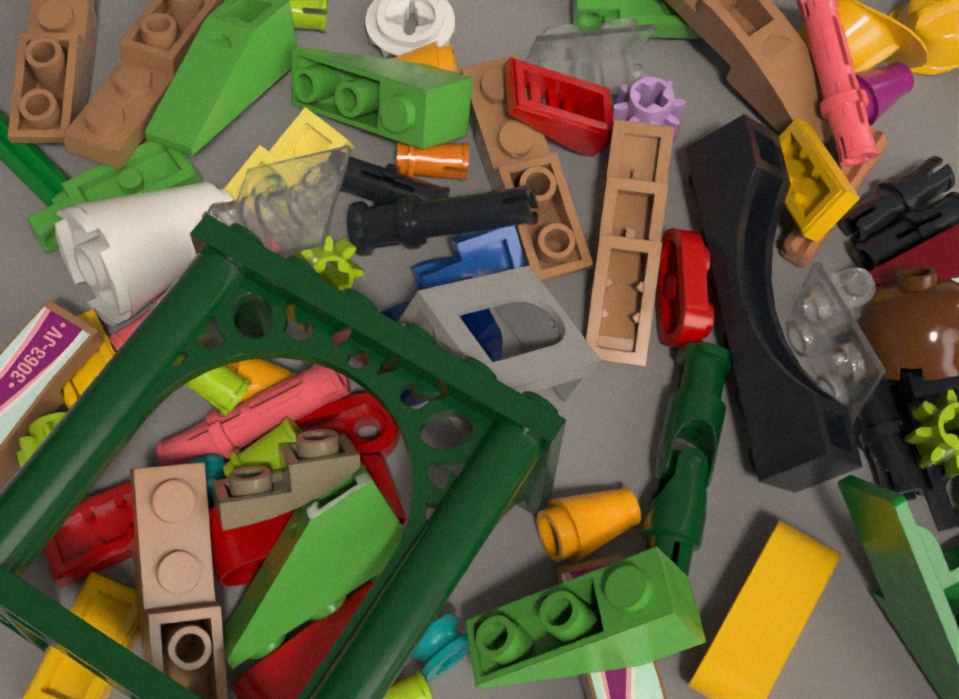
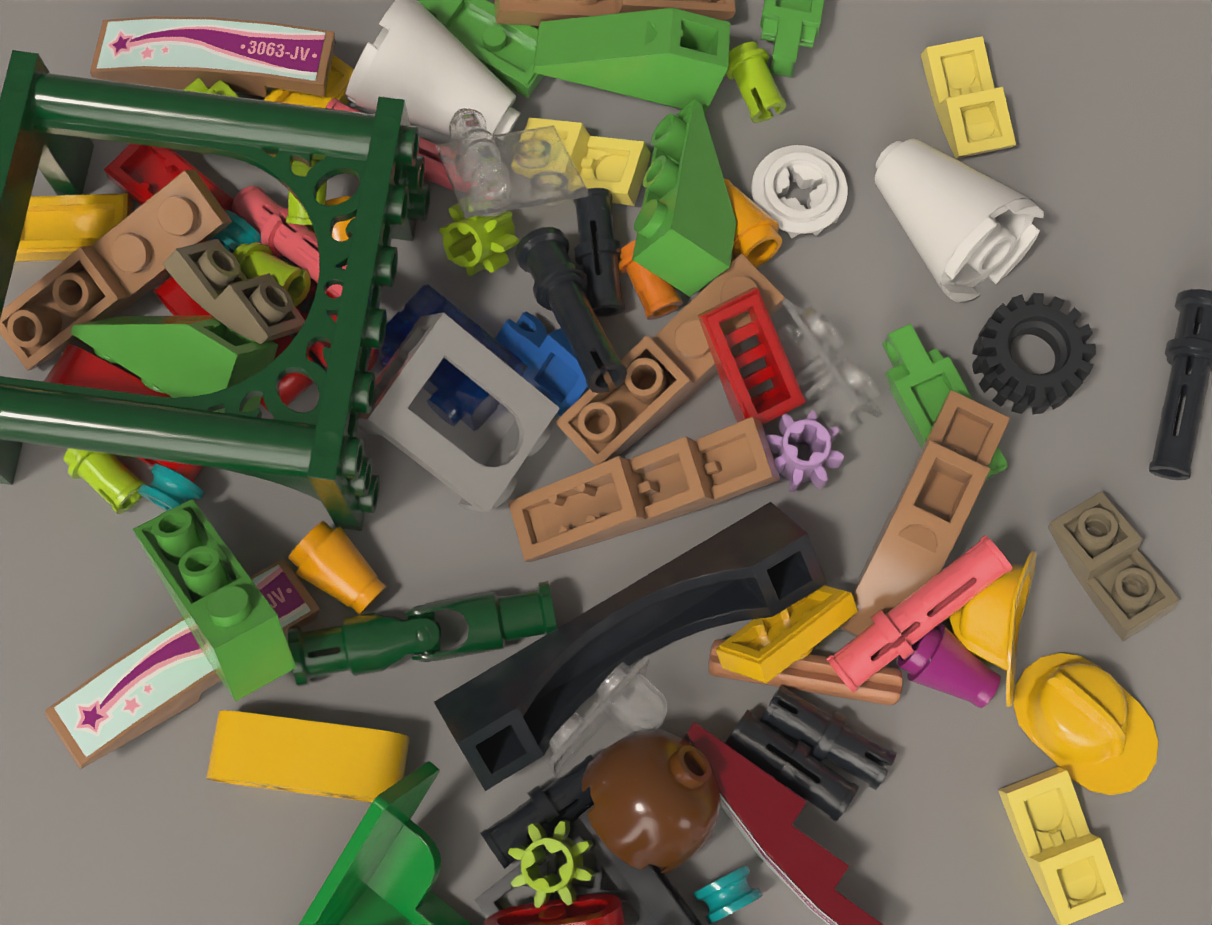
camera: 65 degrees right, 10 degrees up
(682, 289) = (588, 573): red plate -> none

